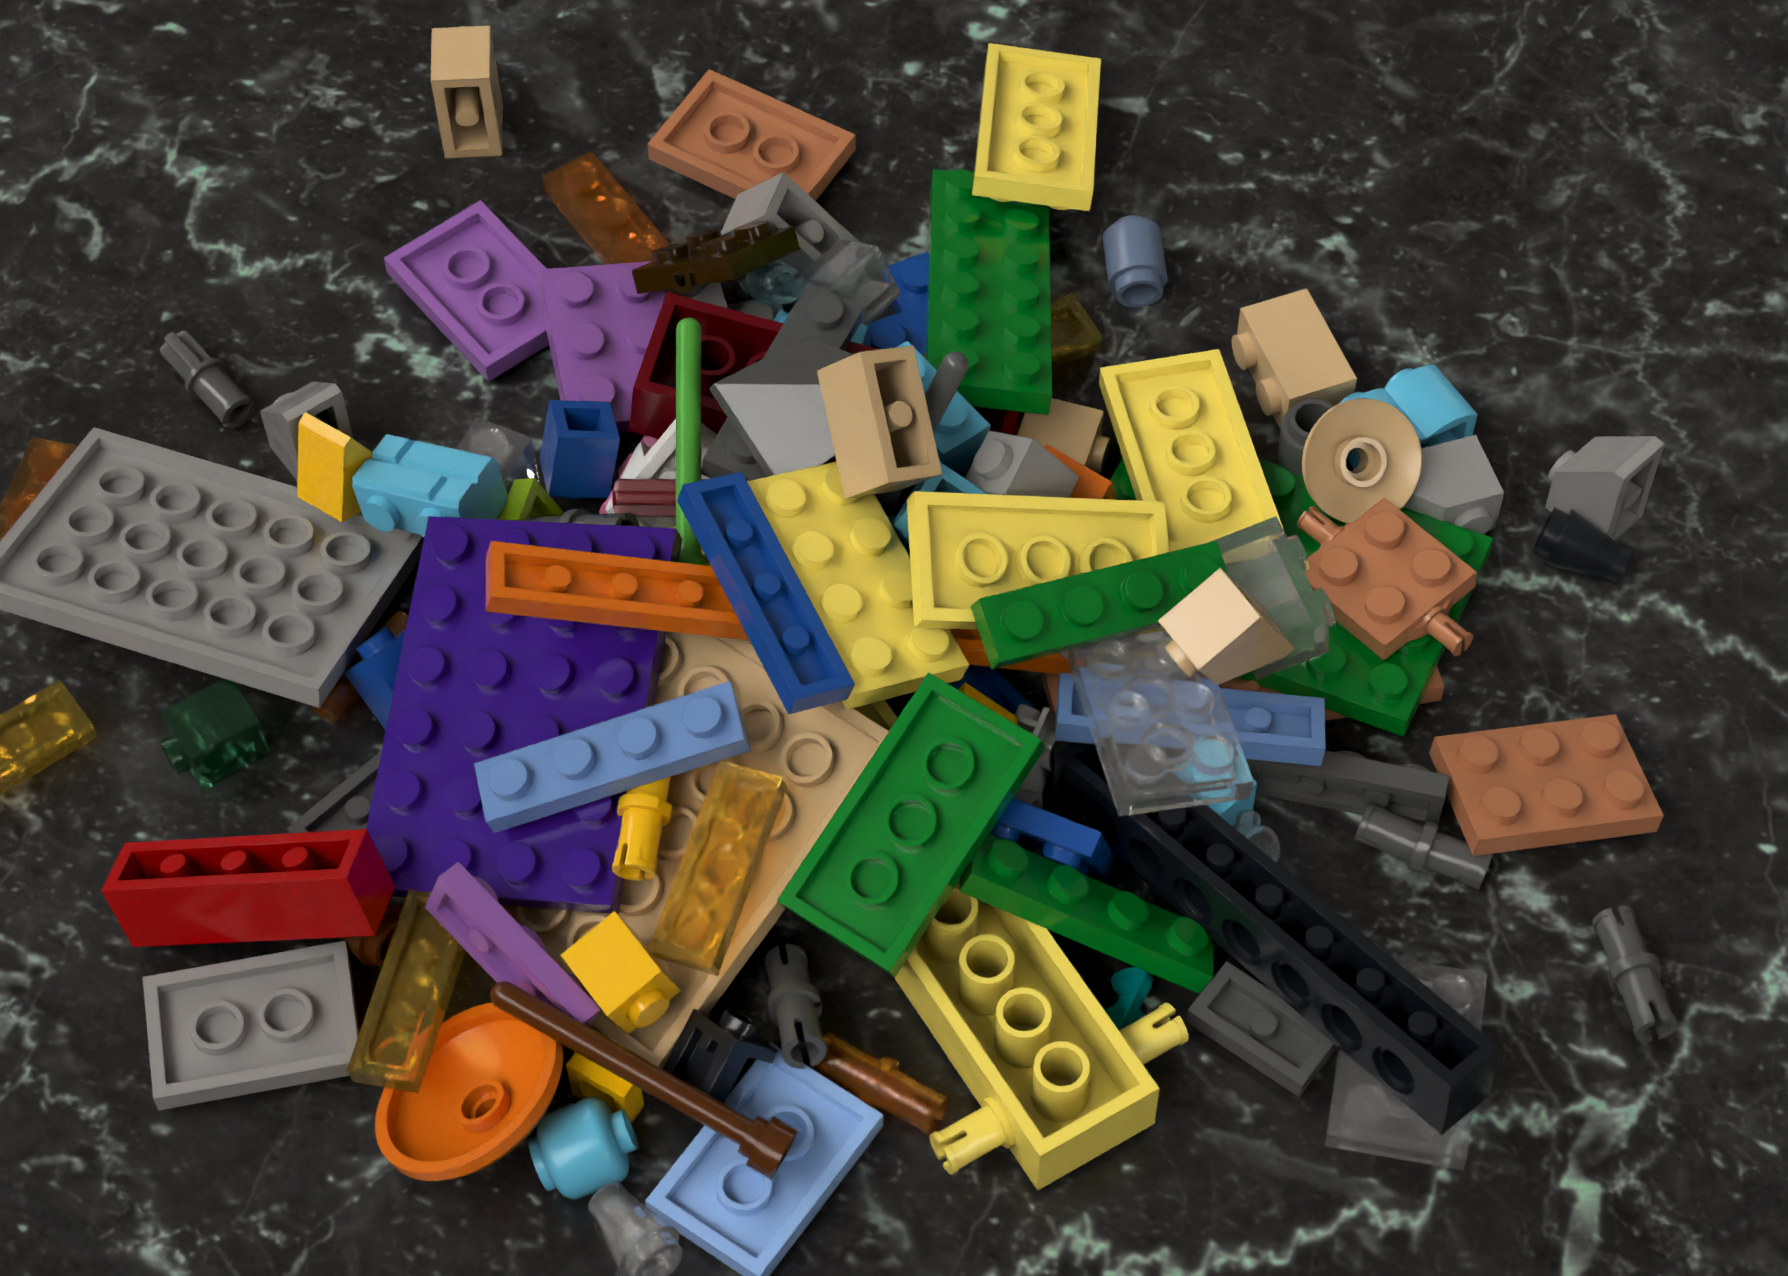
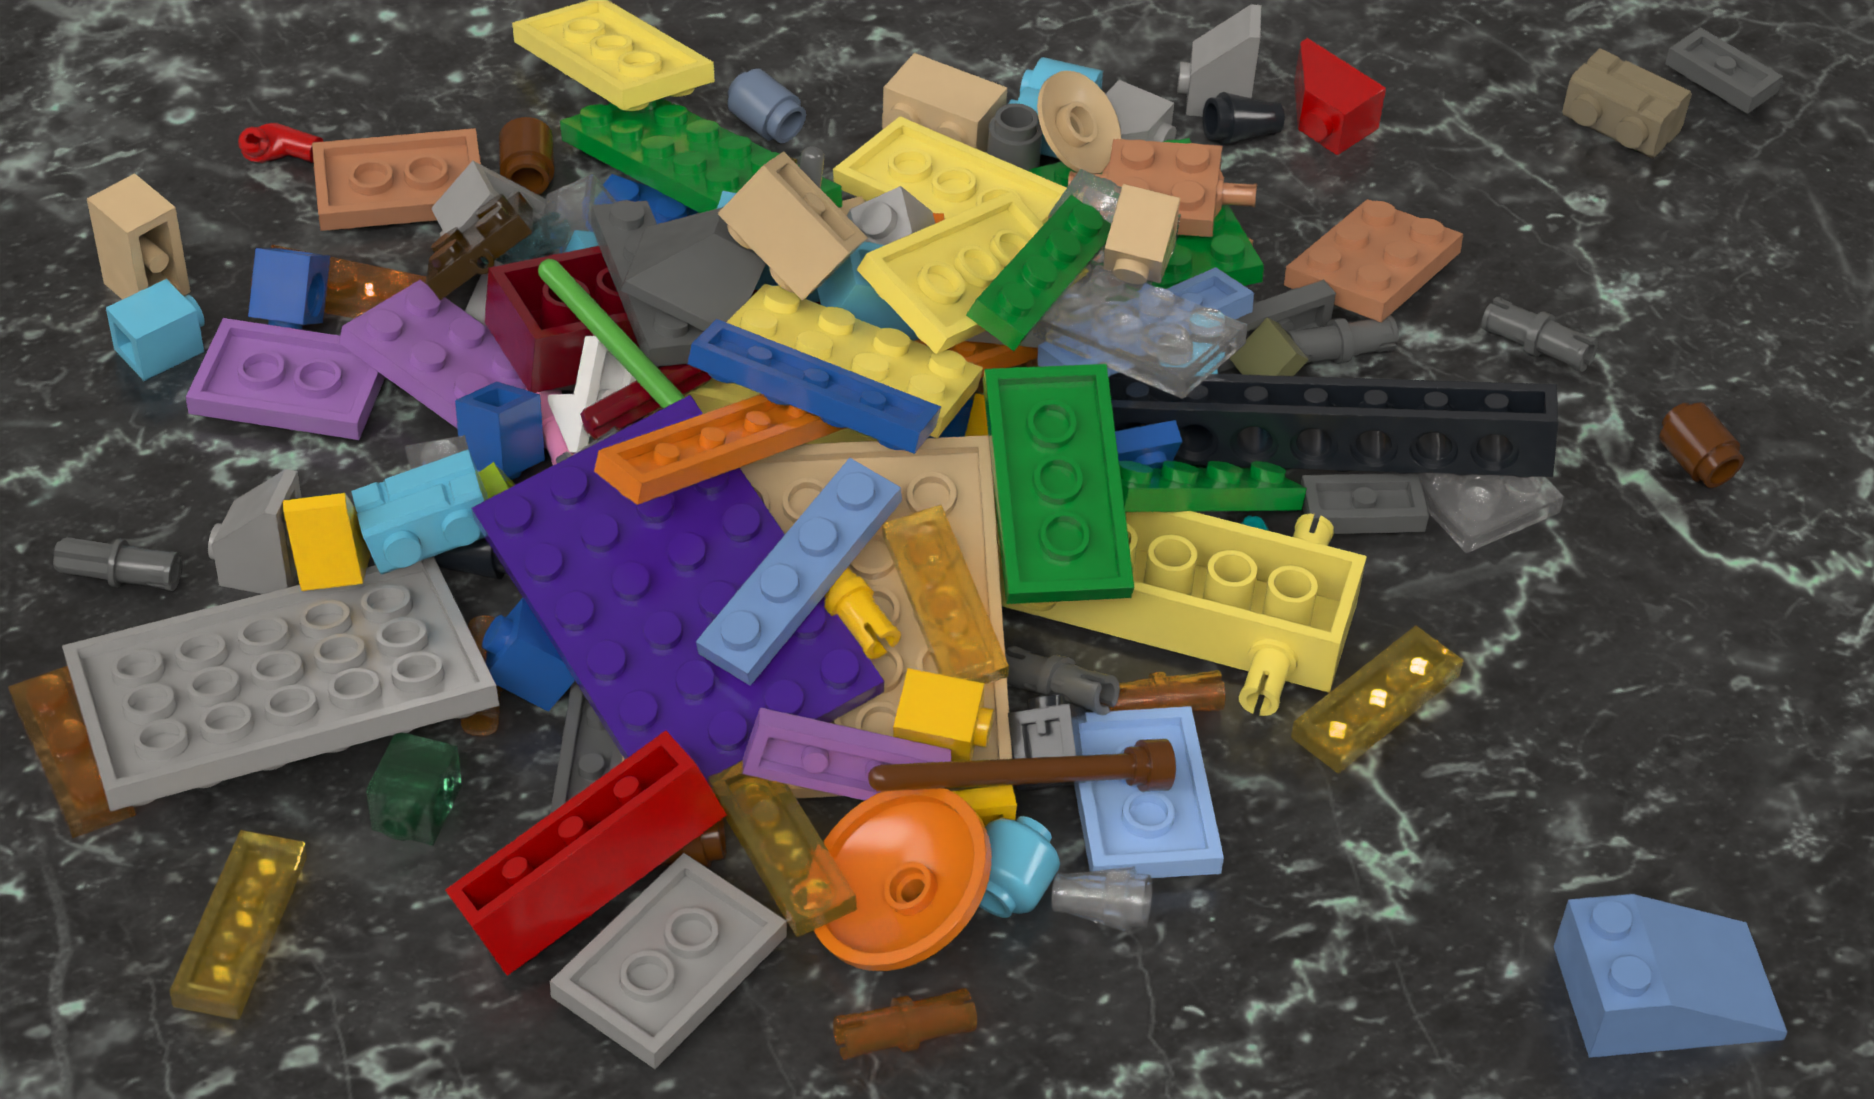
camera: 45 degrees left, 10 degrees down
(366, 1221) = (904, 1023): none -> clear orange pin
(426, 177) = (156, 329): none -> medium azure brick
(550, 202) = (289, 287): none -> blue brick
(691, 48) = (276, 141): none -> red arm
(874, 188) = (527, 153): none -> reddish brown brick
(1065, 1229) = (1376, 699): none -> clear yellow plate
(1327, 820) = (1269, 352): none -> olive tile
(1669, 1203) = (1701, 444): none -> reddish brown brick
(1693, 585) = (1334, 99): none -> red slope

